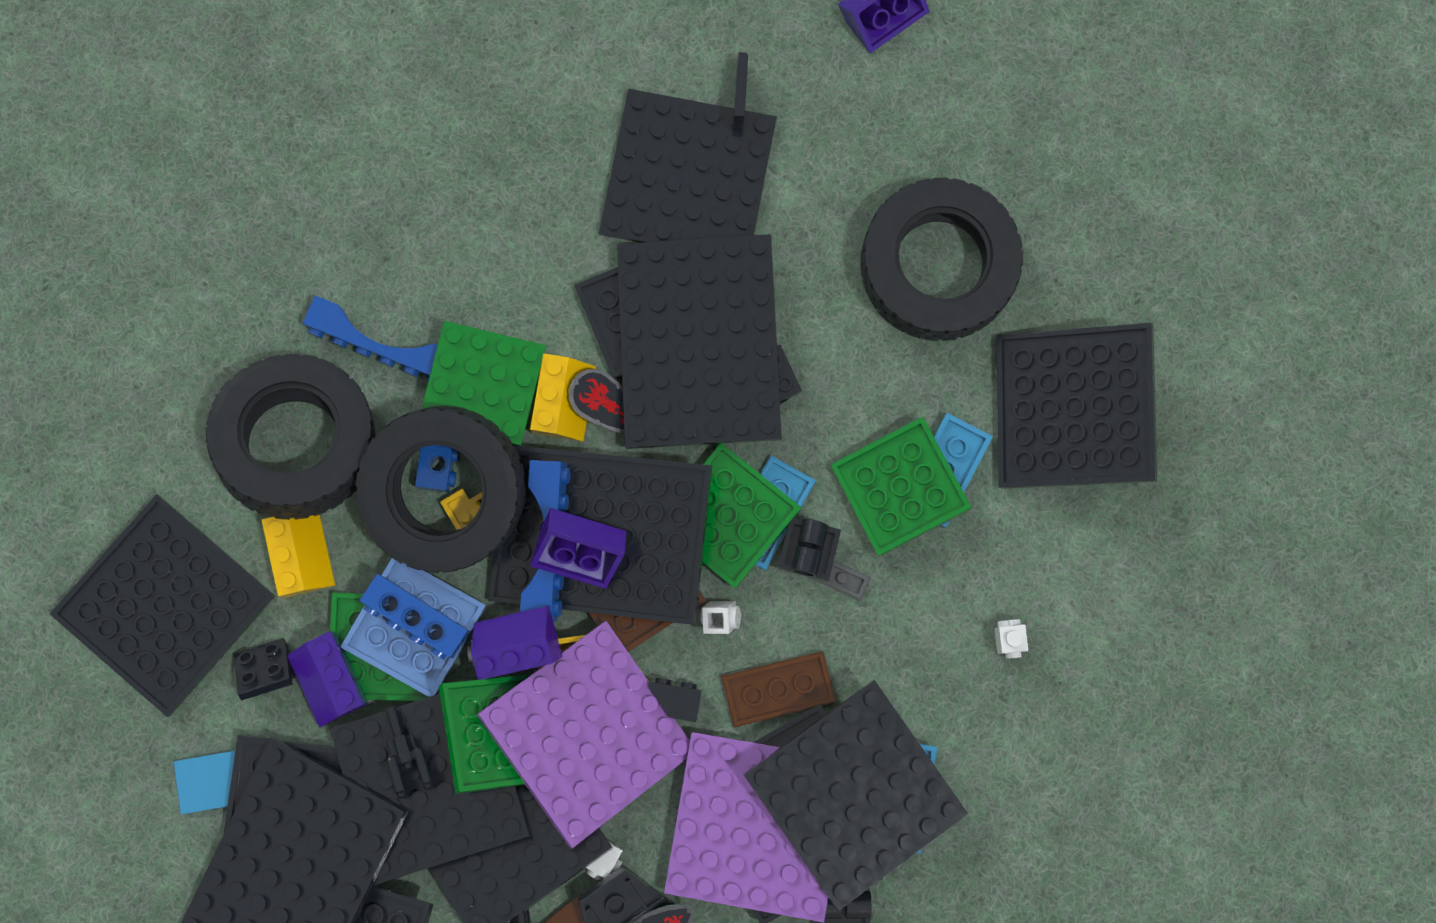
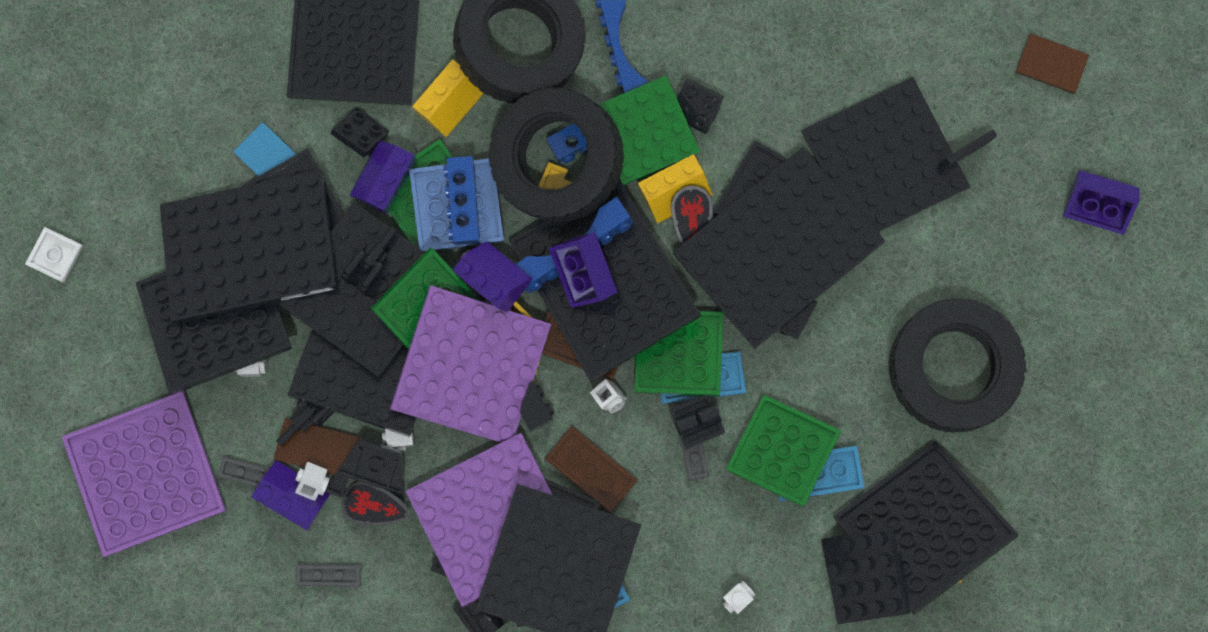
camera: 60 degrees right, 0 degrees up
(497, 311) = (699, 105): none -> black plate
(1082, 498) = (865, 575): none -> black plate

